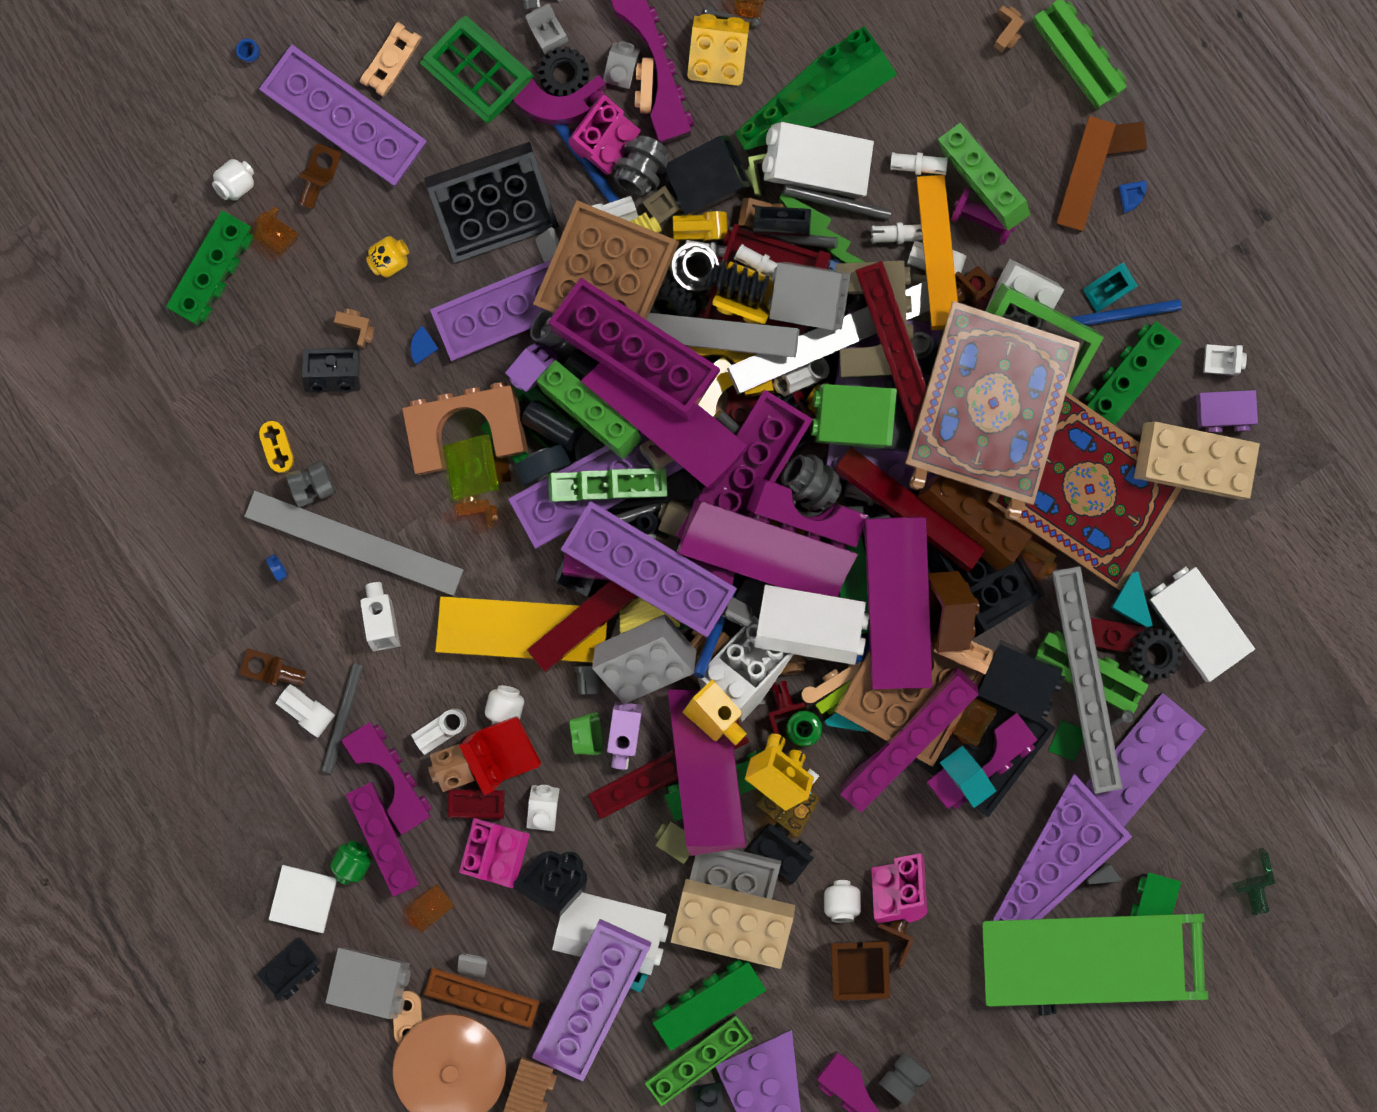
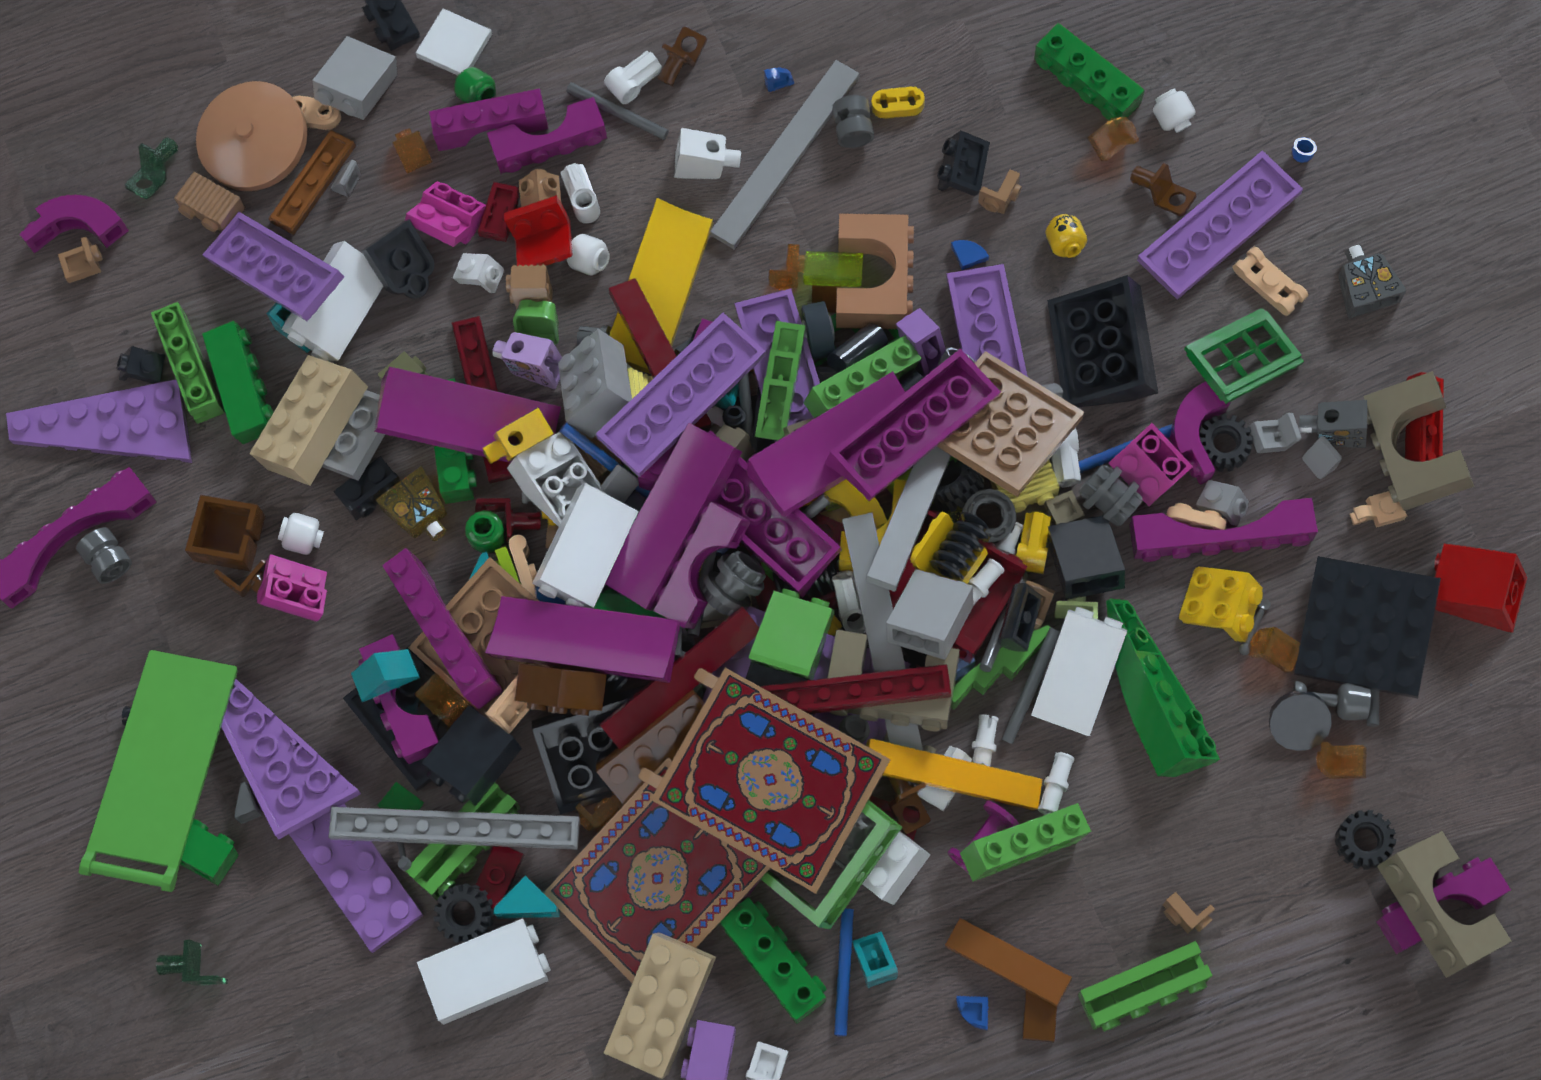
camera: 110 degrees right, 15 degrees down
(557, 749) = (529, 284): none -> medium nougat brick
(780, 775) = (437, 483): yellow brick -> none

